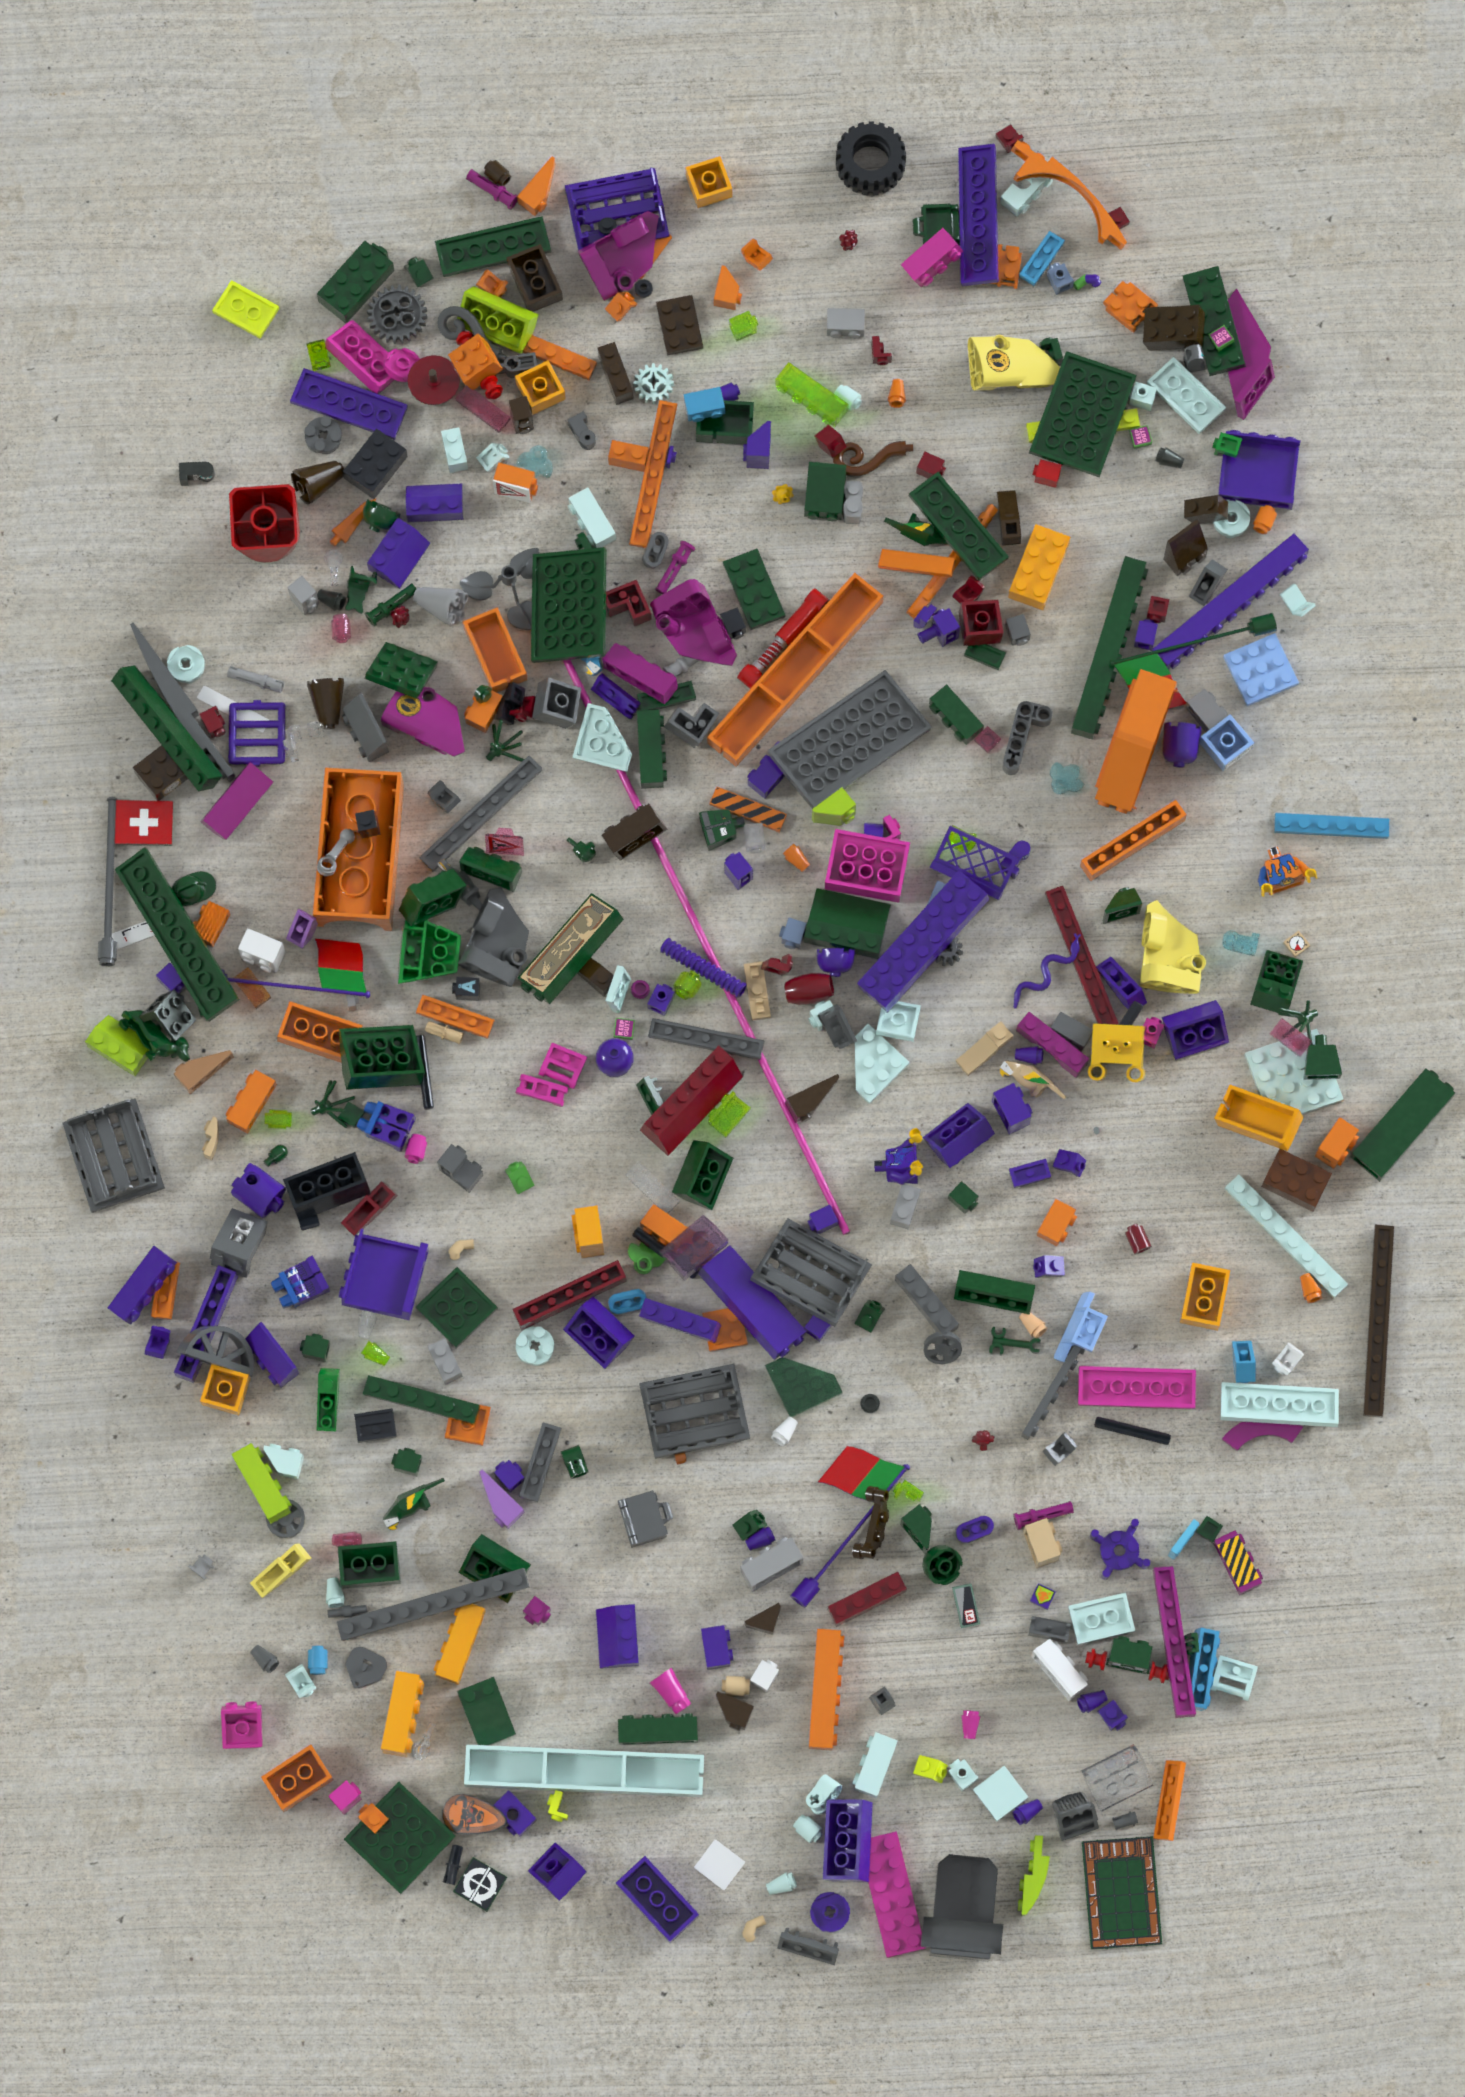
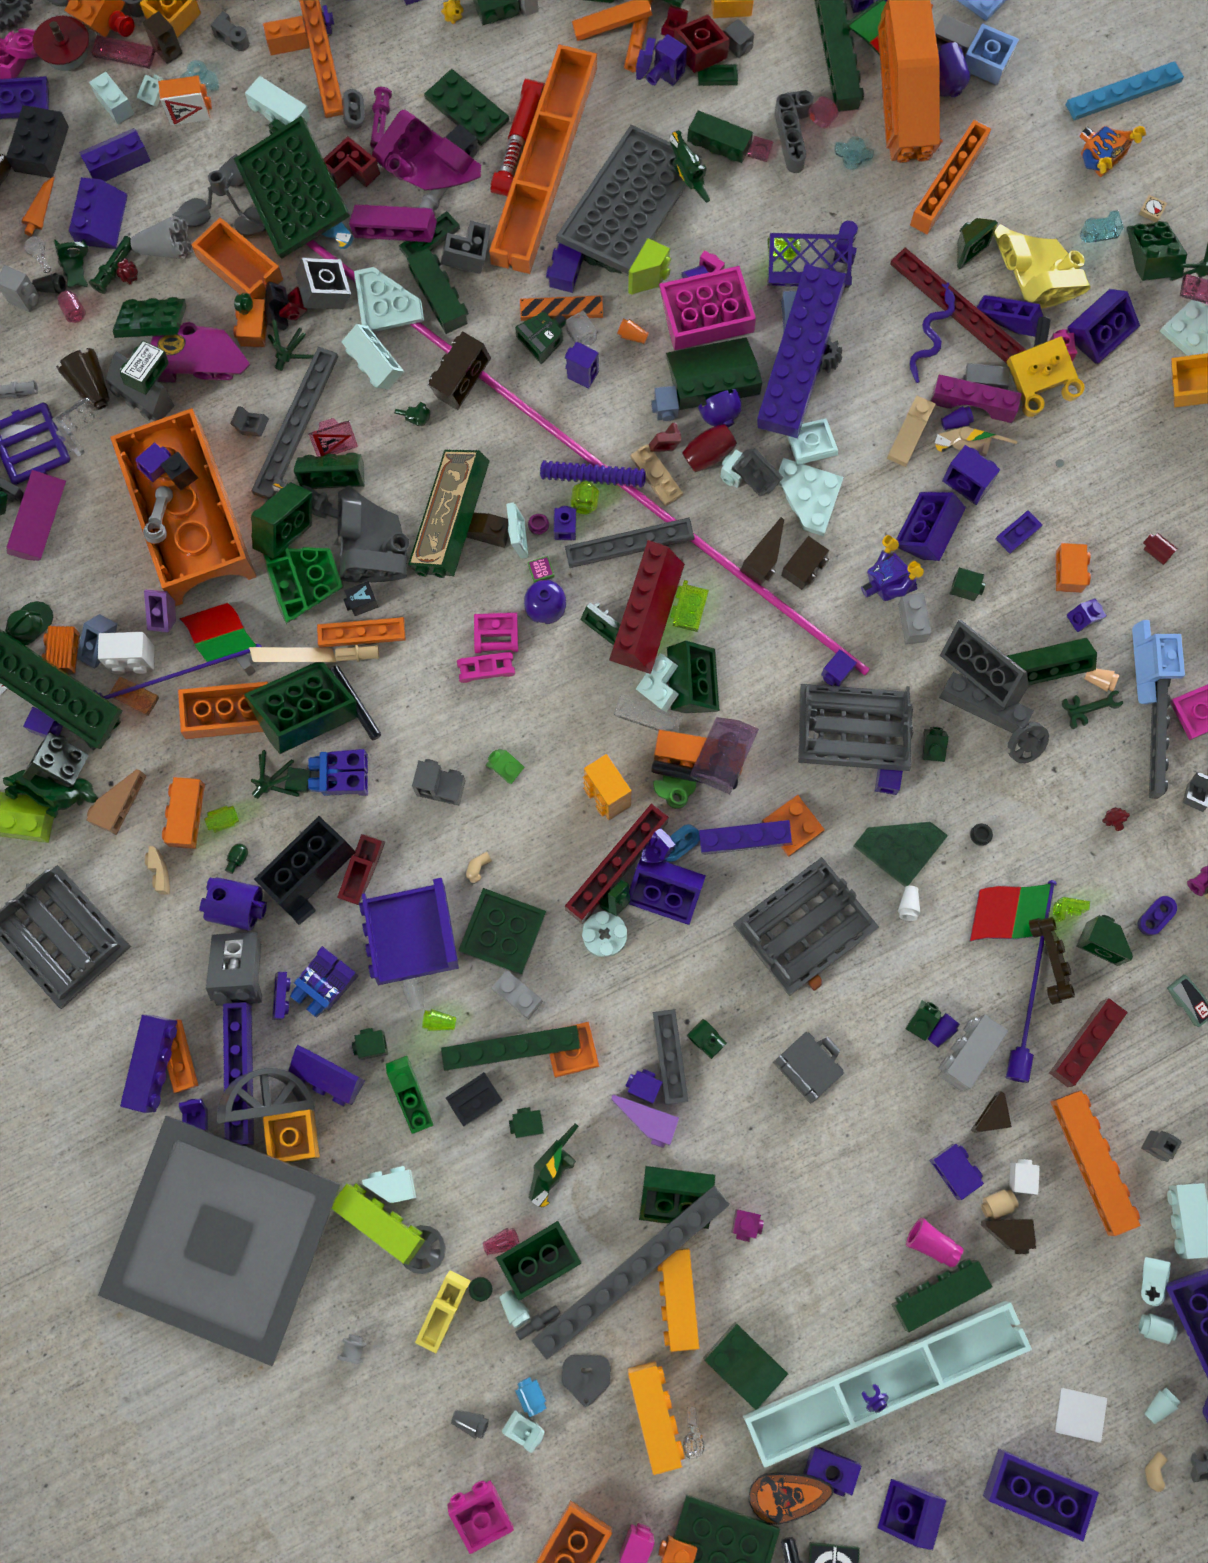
camera: 25 degrees left, 0 degrees up
(139, 1440) = (219, 1240): none -> baseplate
(235, 931) = (89, 639): none -> sand blue slope
(260, 1287) = (281, 986): none -> dark purple plate
(315, 1567) = (480, 1289): none -> dark green plate
(350, 806) = (150, 461): none -> dark purple brick
(377, 719) = (144, 367): none -> brick
(379, 516) = (62, 185): dark green cylinder -> none
(392, 1012) = (282, 654): none -> tan sticker
(416, 1148) = (382, 784): dark pink brick -> none
(554, 1802) = (870, 1434): neon yellow bracket -> none
(556, 1322) = (616, 899): none -> dark green bracket
(567, 1775) = (876, 1403): none -> dark purple plate
(569, 785) = (372, 357): none -> light aqua brick
(606, 1298) = (658, 847): none -> dark purple plate
(615, 696) = (378, 256): dark purple hinge -> none
(617, 1636) = (846, 1210): dark purple slope -> none
(668, 1166) = (654, 685): none -> light aqua plate
(752, 1304) = (811, 786): dark purple brick -> none
(840, 1121) = (805, 562): none -> dark brown brick
(912, 734) = (688, 165): none -> dark green animal
(934, 1271) = (985, 665): none -> dark grey slope
(942, 1564) = (1148, 969): dark green cylinder -> none
(1056, 732) = (823, 112): none -> clear pink piece
(1069, 1162) = (1051, 503): dark purple bracket -> none

